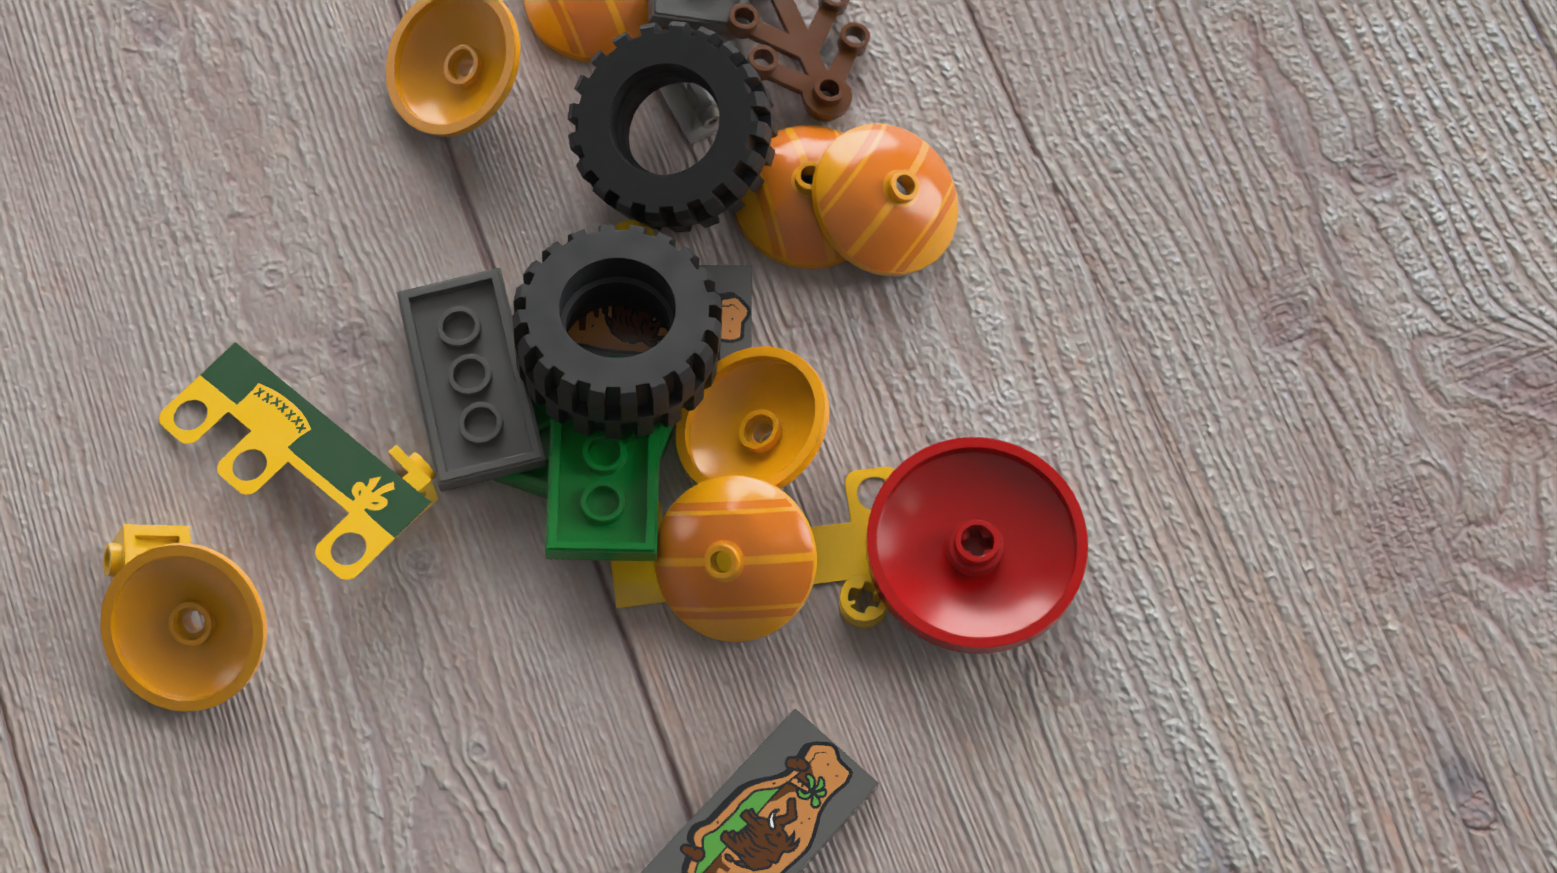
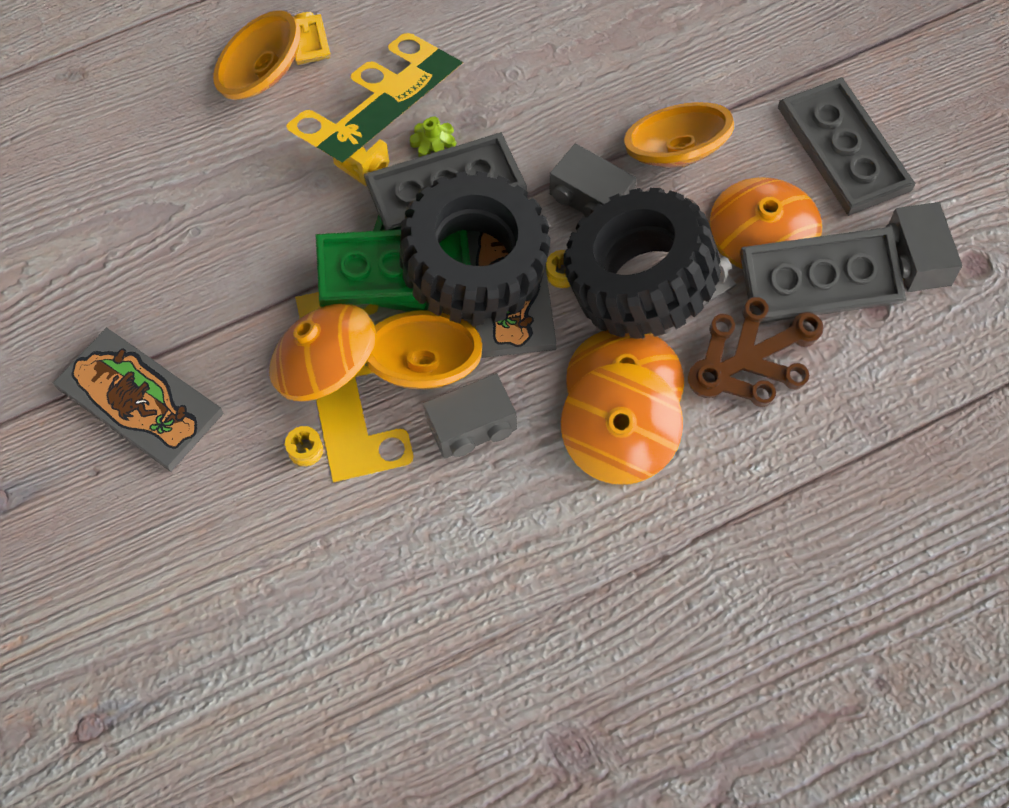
camera: 90 degrees right, 5 degrees down
(373, 396) = (432, 136): none -> lime plant
(510, 187) = (586, 180): none -> dark grey brick
(855, 380) = (471, 416): none -> dark grey brick
(976, 545) = (342, 511): red dish -> none

